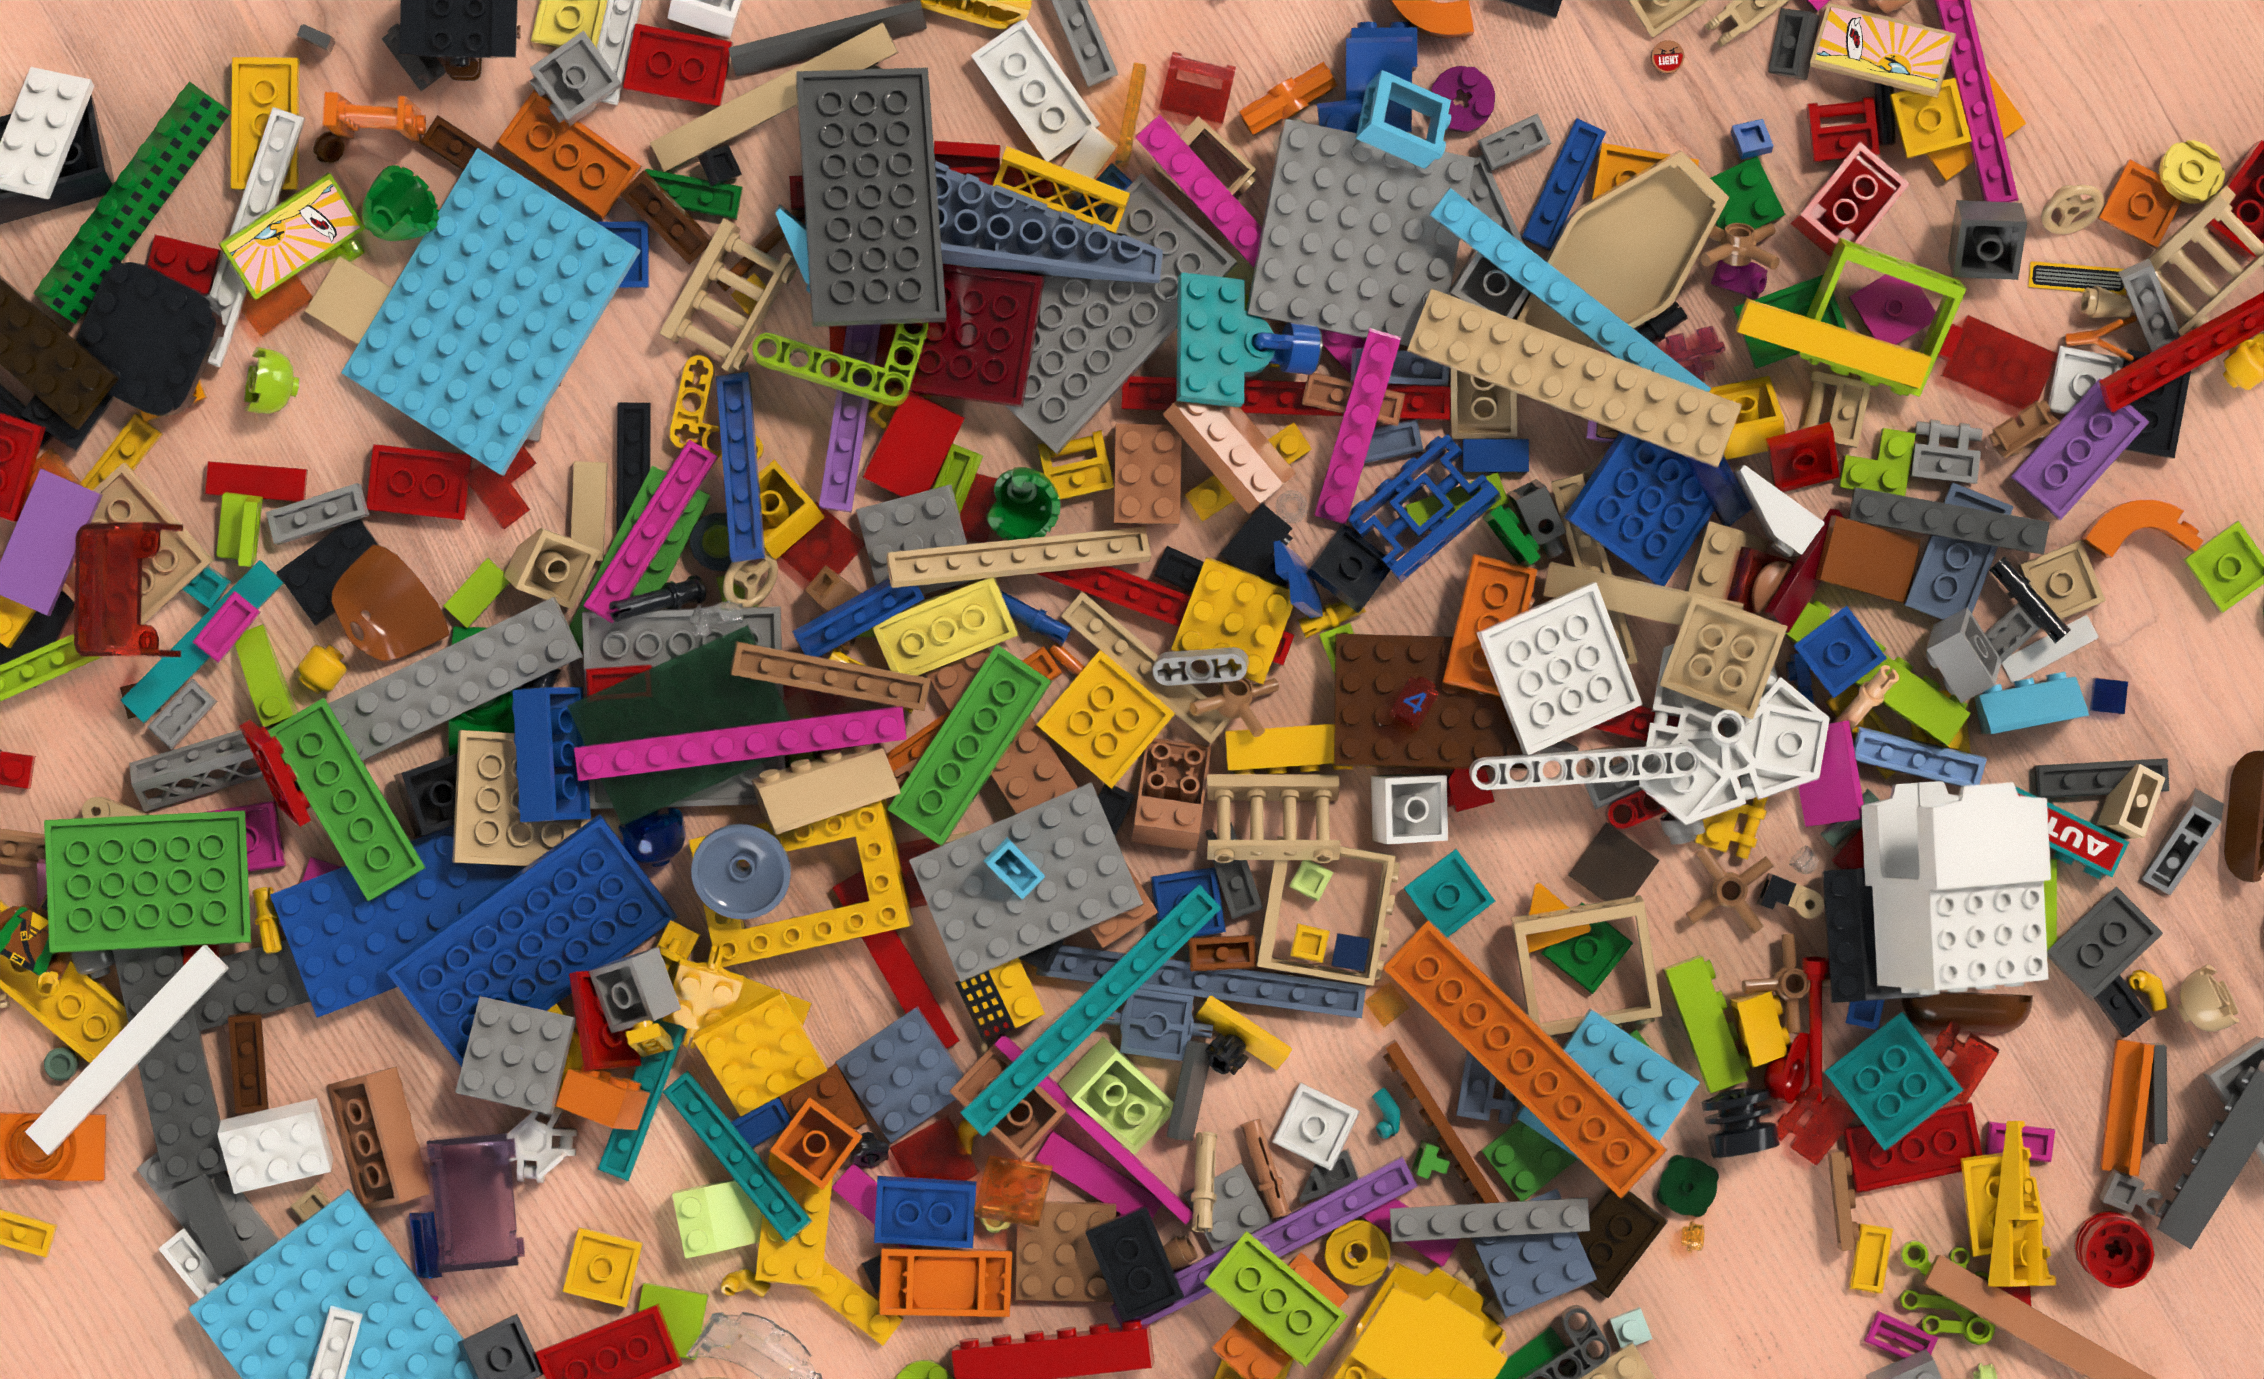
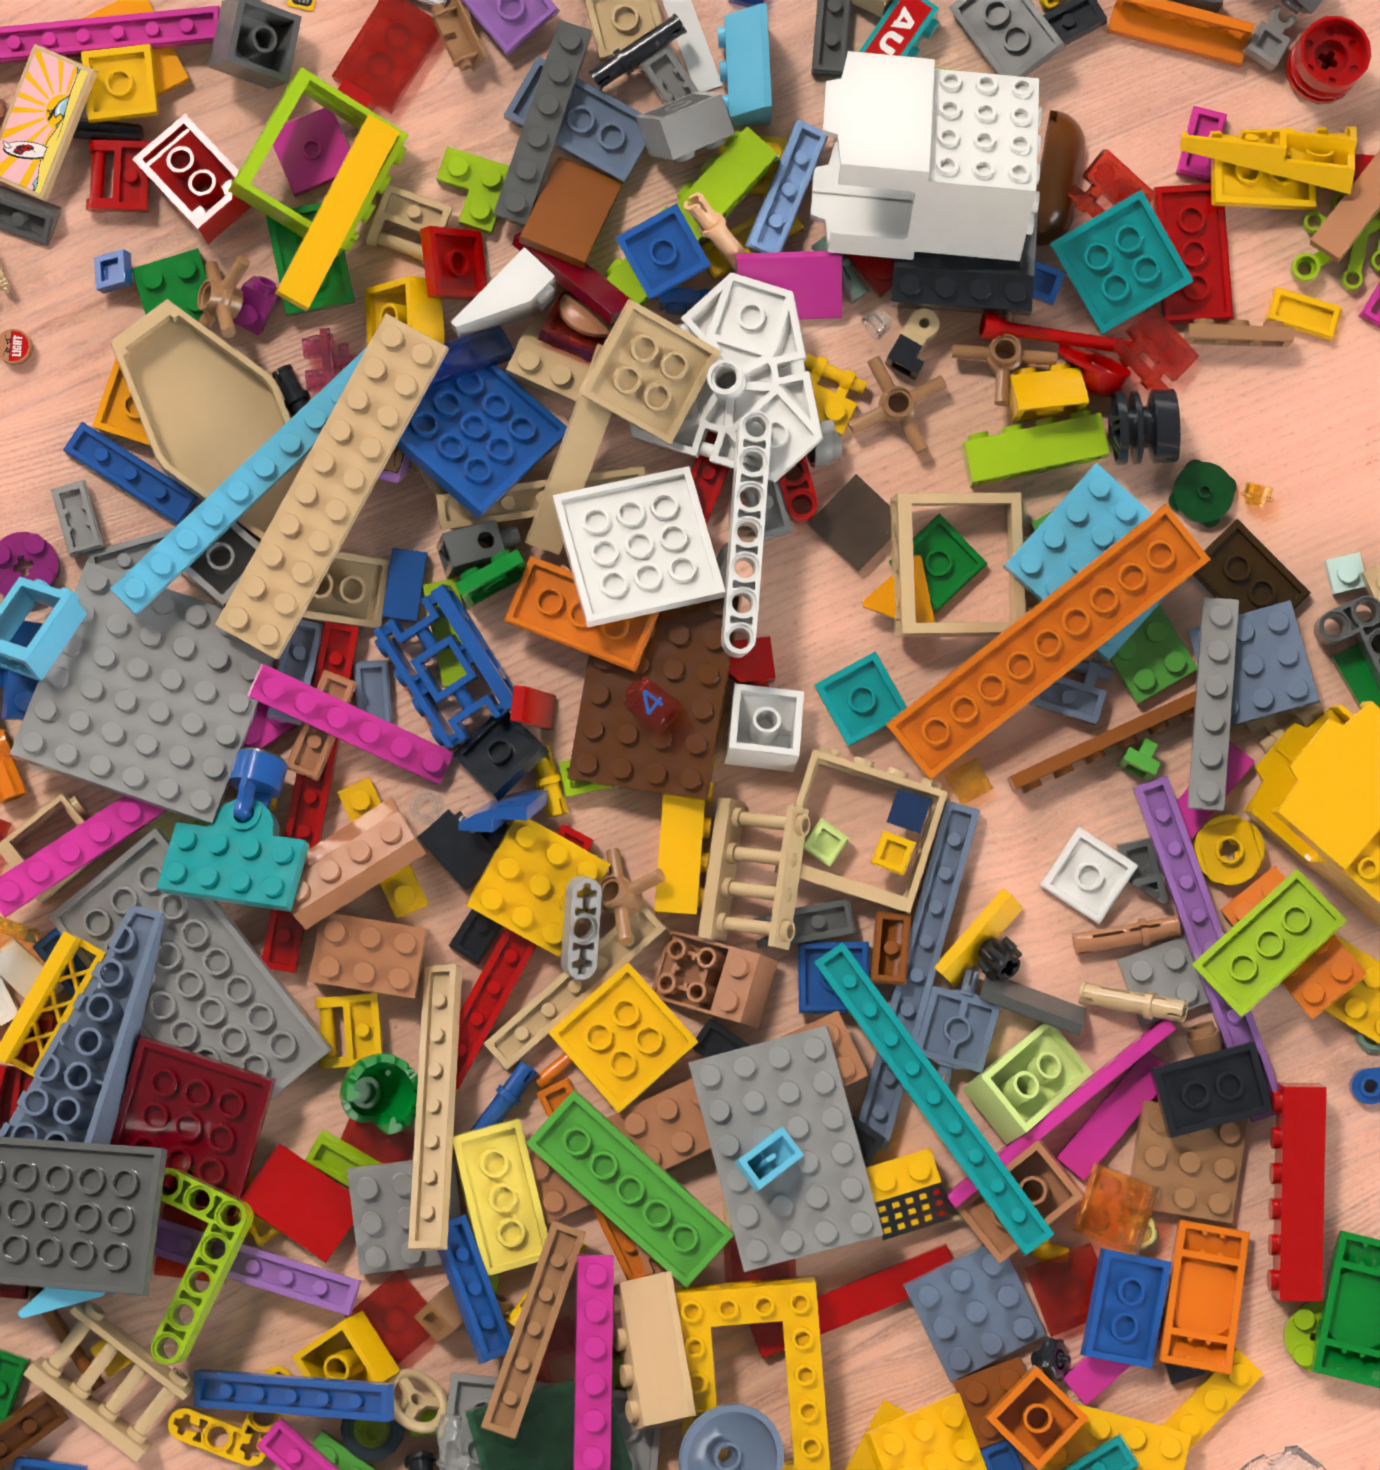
camera: 80 degrees left, 5 degrees down
(1391, 1114) = (1086, 793): teal arm -> none
(1397, 592) = (533, 707): none -> red tile
(1946, 463) = (482, 118): light grey plate -> none

